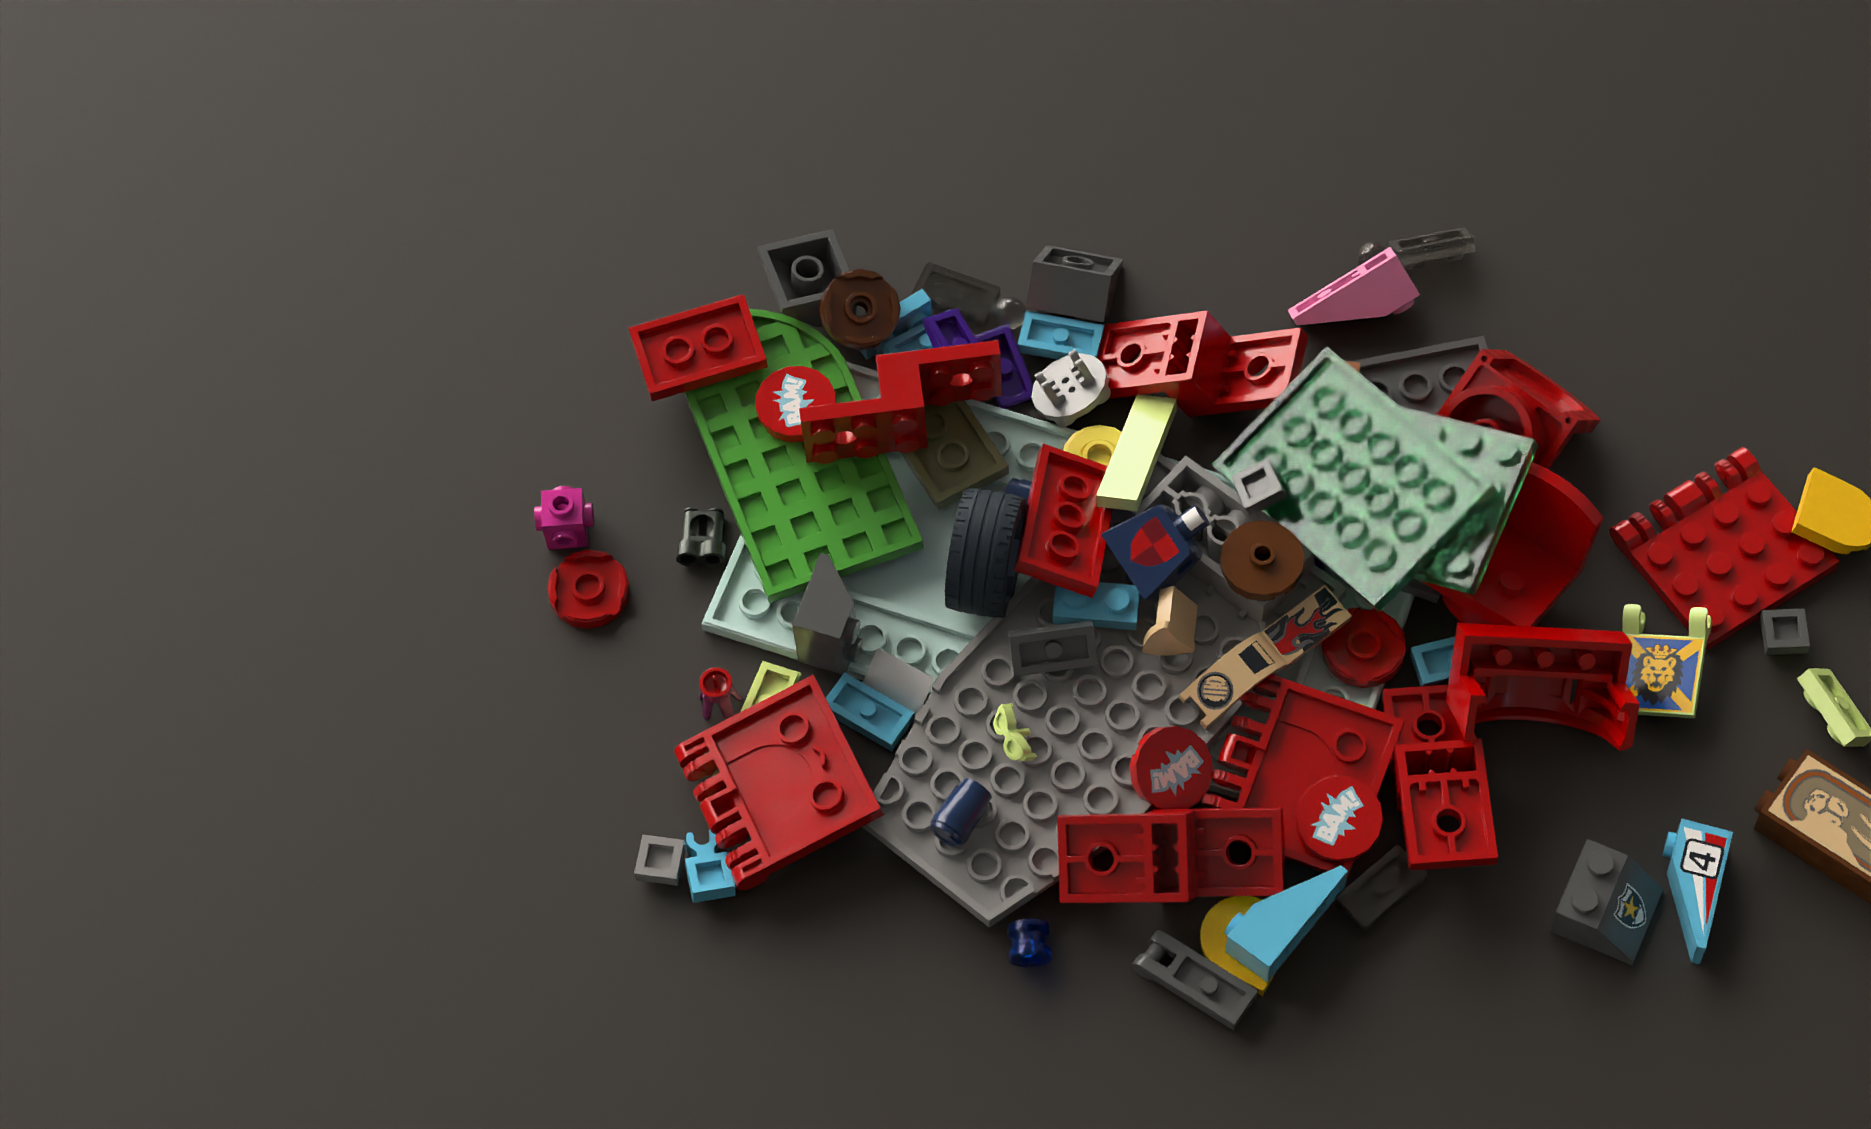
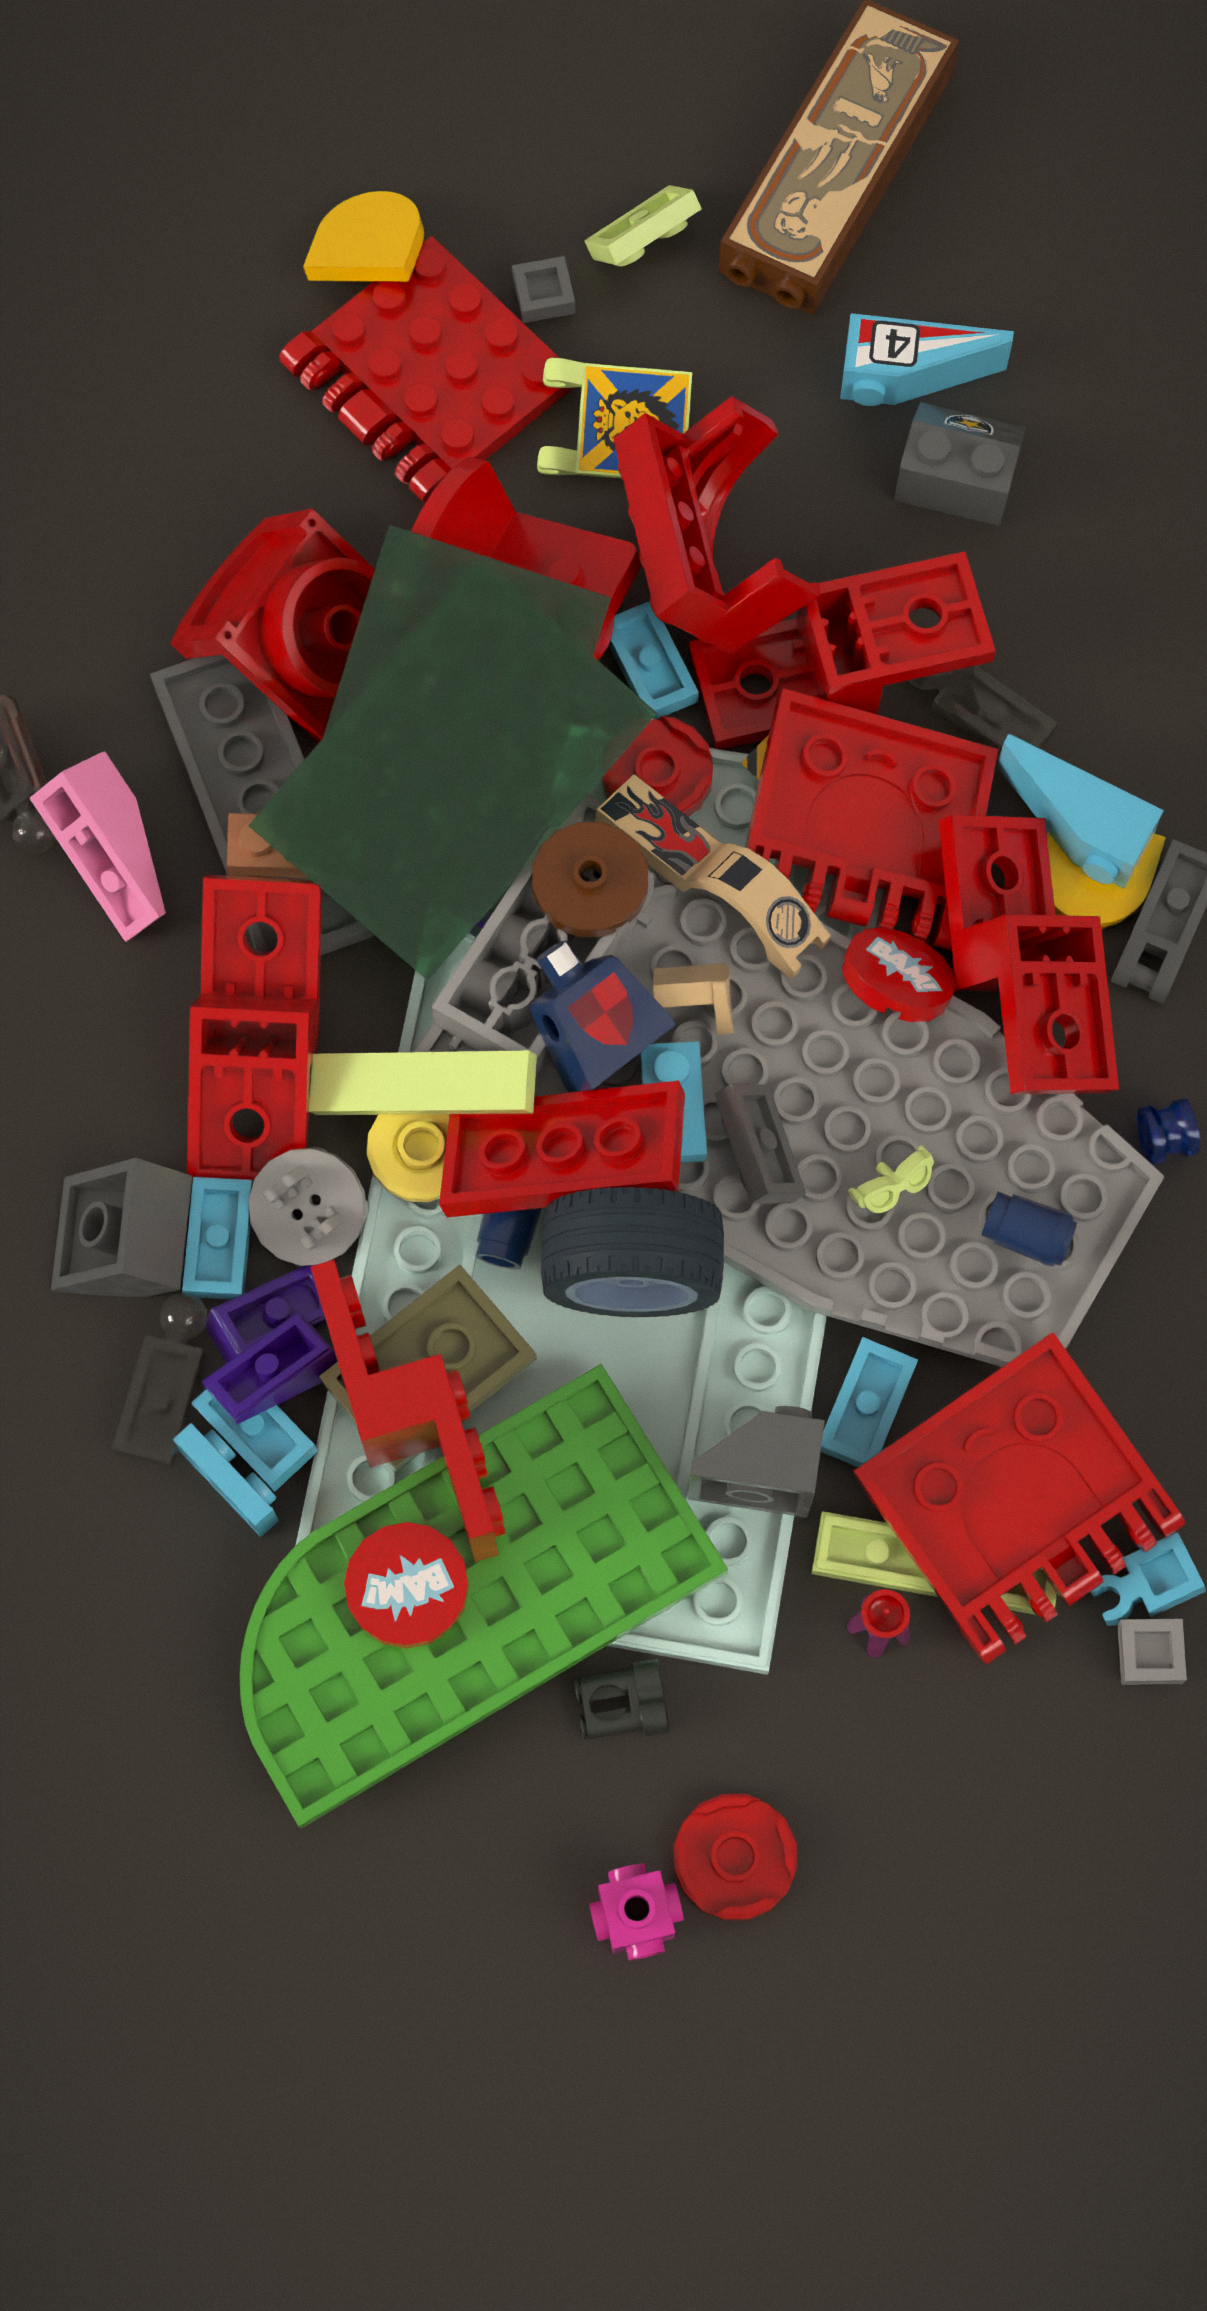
camera: 105 degrees left, 10 degrees up
(698, 347) = (332, 1752): red plate -> none
(801, 272) = (173, 1610): dark grey slope -> none
(861, 289) = (238, 1489): reddish brown plate -> none
(898, 680) = (819, 1369): white sticker -> none
(1259, 486) = (480, 892): plate -> none
(1339, 818) = (932, 757): tile -> none

